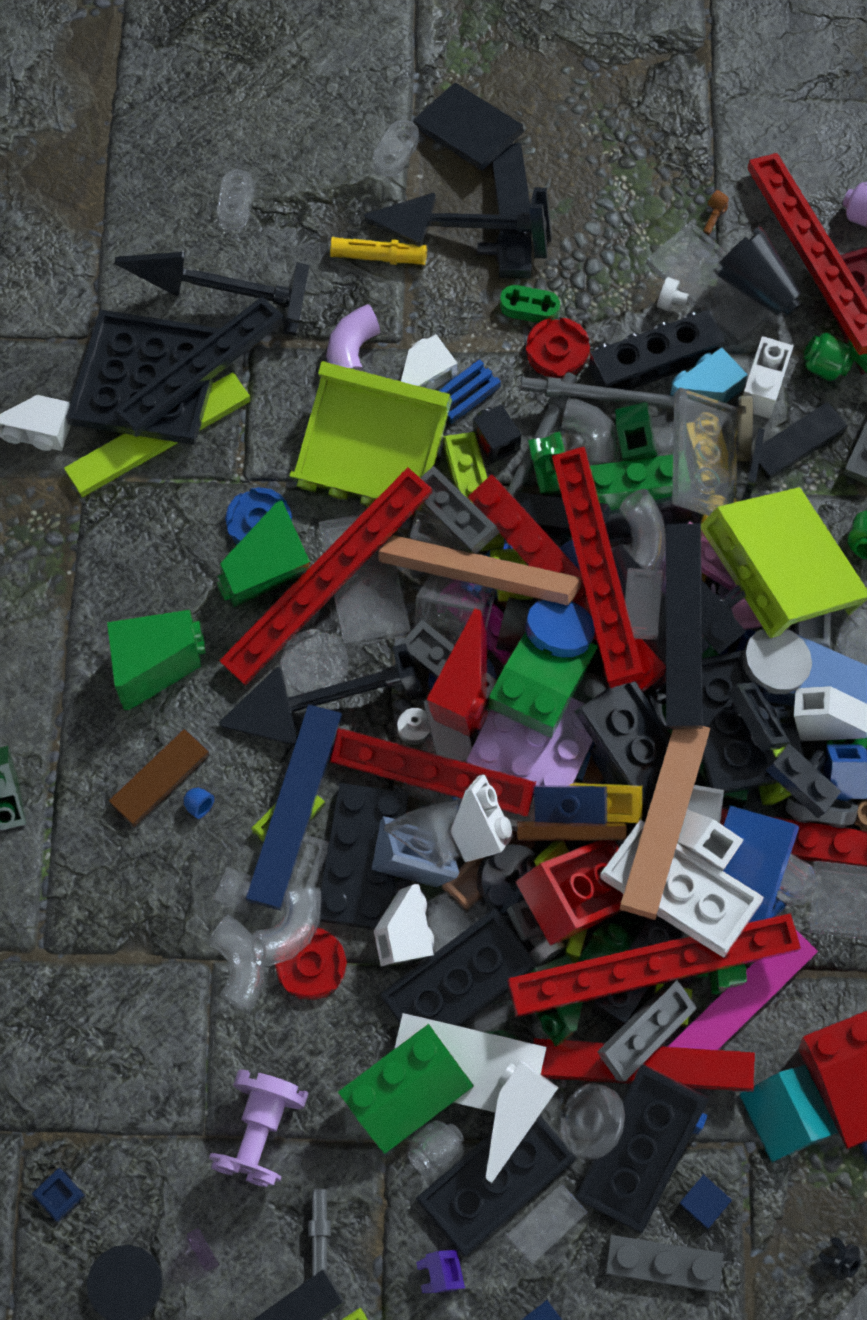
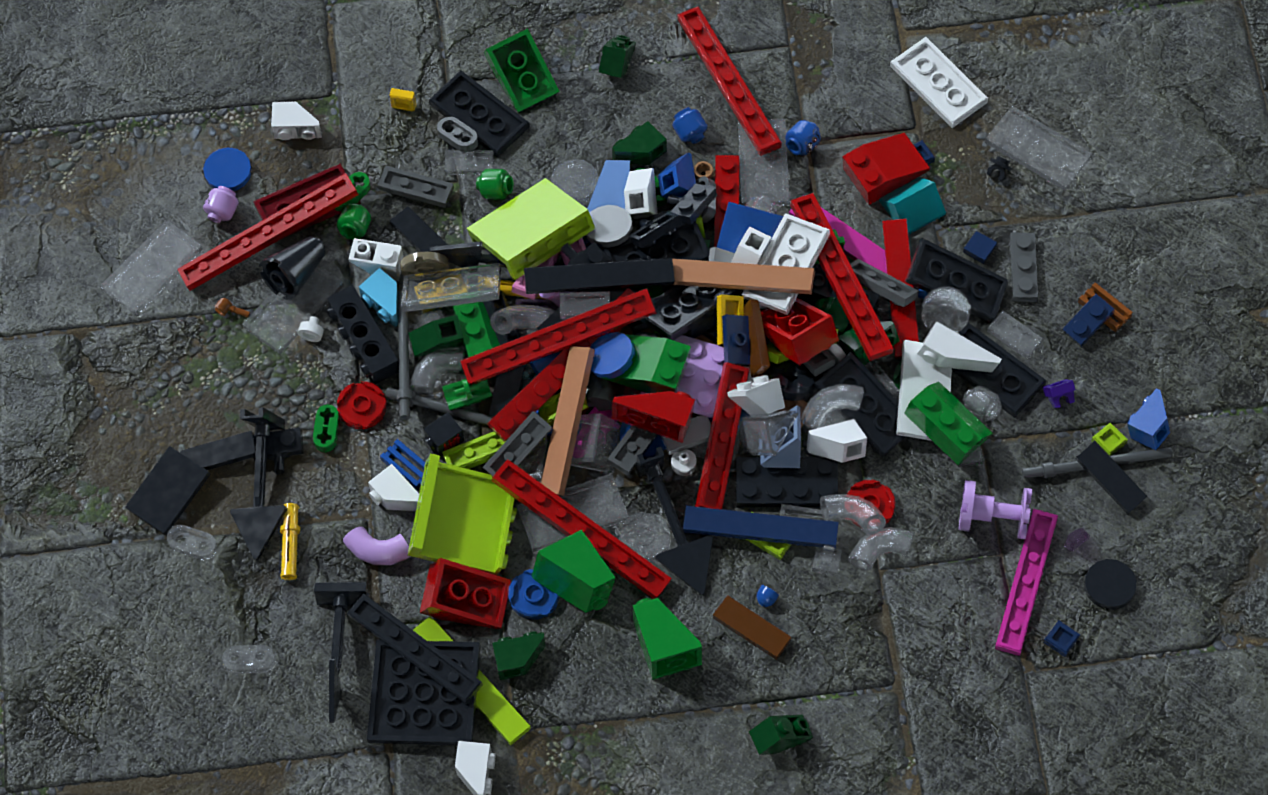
camera: 95 degrees left, 5 degrees down
(155, 1162) = (1026, 582): none -> dark pink tile
(173, 485) = (517, 654): none -> dark green slope
(266, 436) = (464, 595): none -> red slope
(459, 920) = (830, 400): none -> clear cylinder
(786, 127) = (151, 267): none -> clear tile

